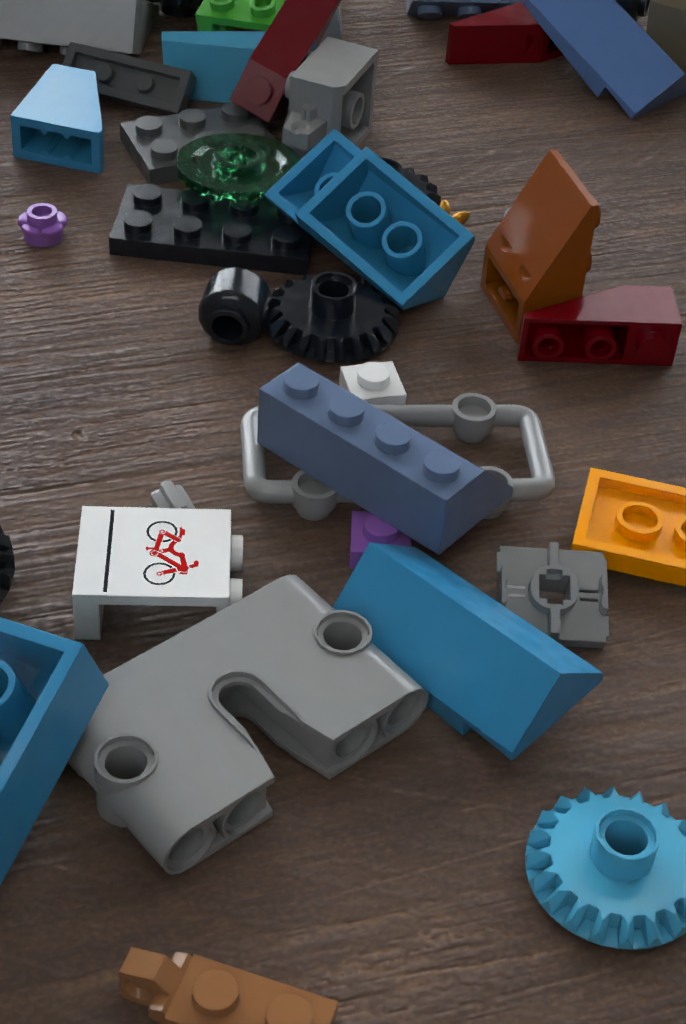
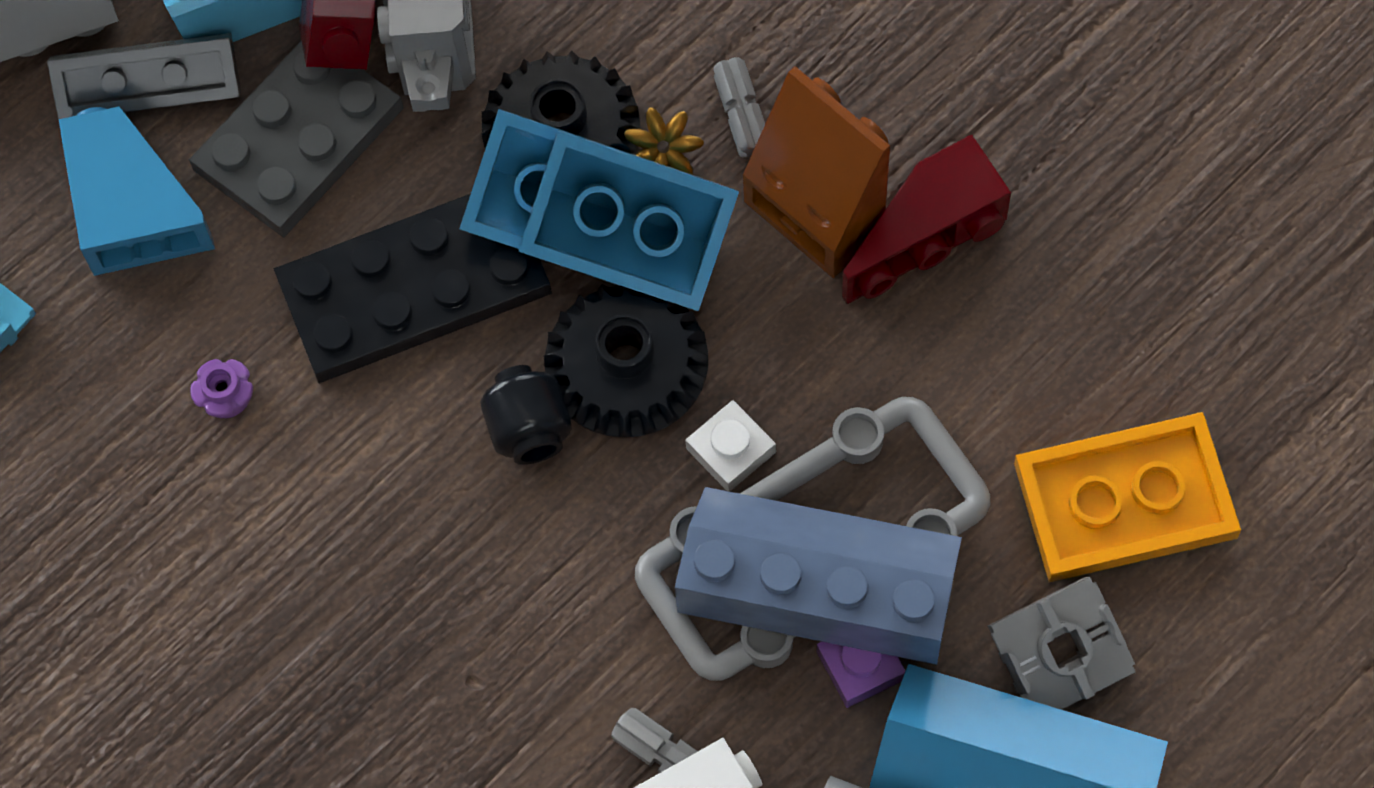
camera: 20 degrees left, 25 degrees up
(234, 165) = (385, 152): clear green gear -> none

